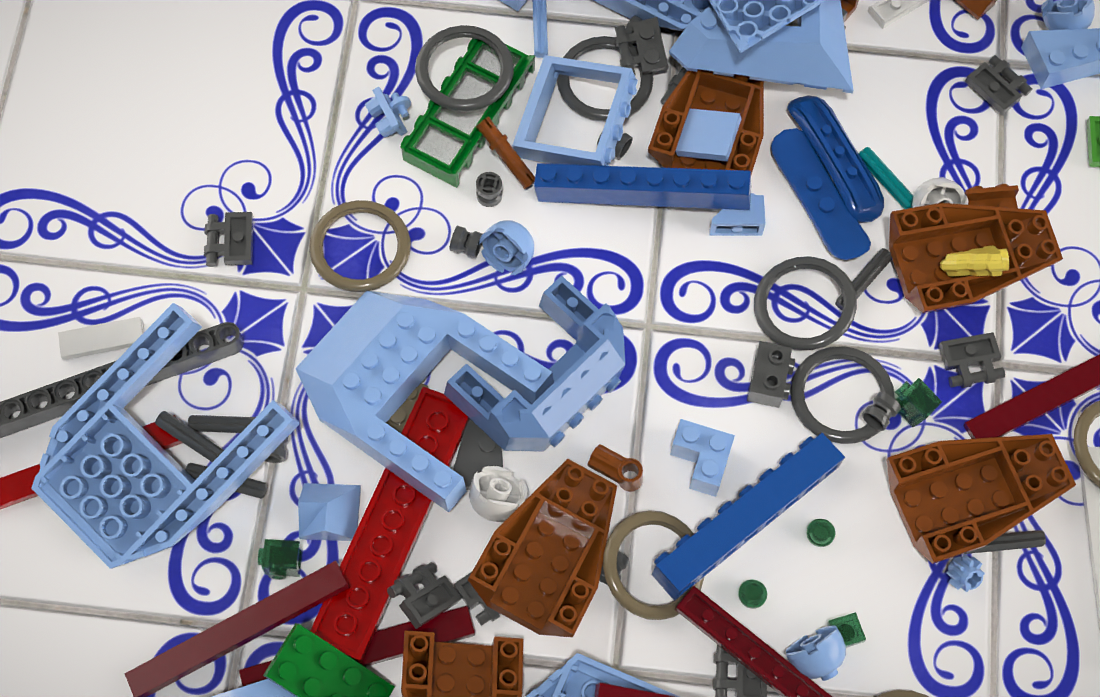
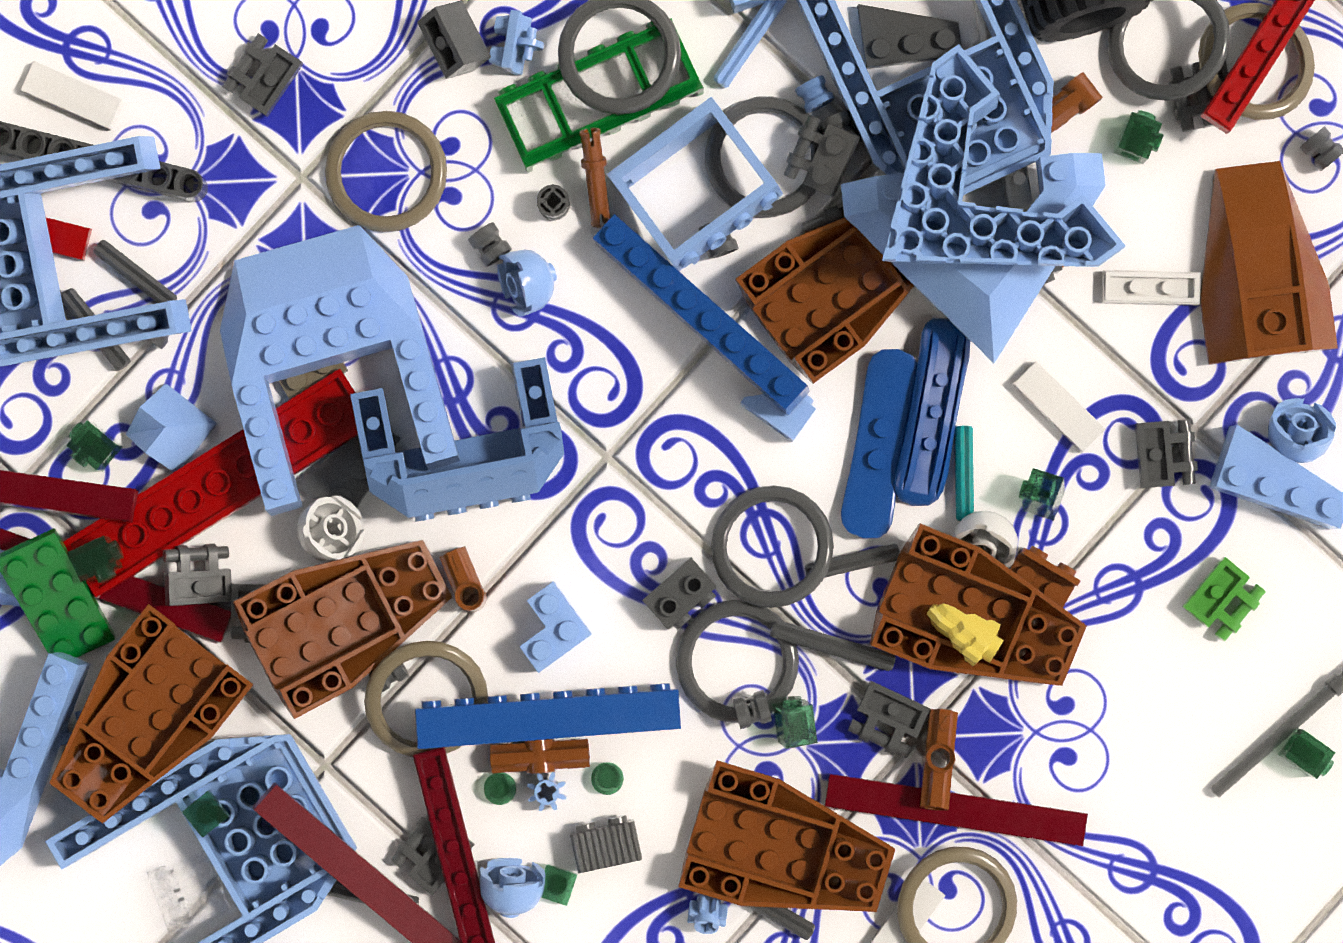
camera: 35 degrees right, 20 degrees up
(188, 436) = (89, 267): dark grey axle -> none
(343, 627) = (97, 560): none -> clear green brick
(346, 132) = (453, 39): none -> dark grey brick
(607, 21) = (814, 94): none -> medium blue wheel
(708, 134) = (811, 304): light blue tile -> none
(762, 549) = (540, 756): none -> dark orange piece
(792, 562) = (544, 799): none -> light blue gear
(857, 578) = (605, 845): none -> dark grey brick
(896, 337) = (832, 645): none -> dark grey axle
(910, 101) = (1059, 406): none -> white tile
(948, 152) = (1042, 494): none -> brick
(1037, 370) = (936, 780): none -> dark orange piece

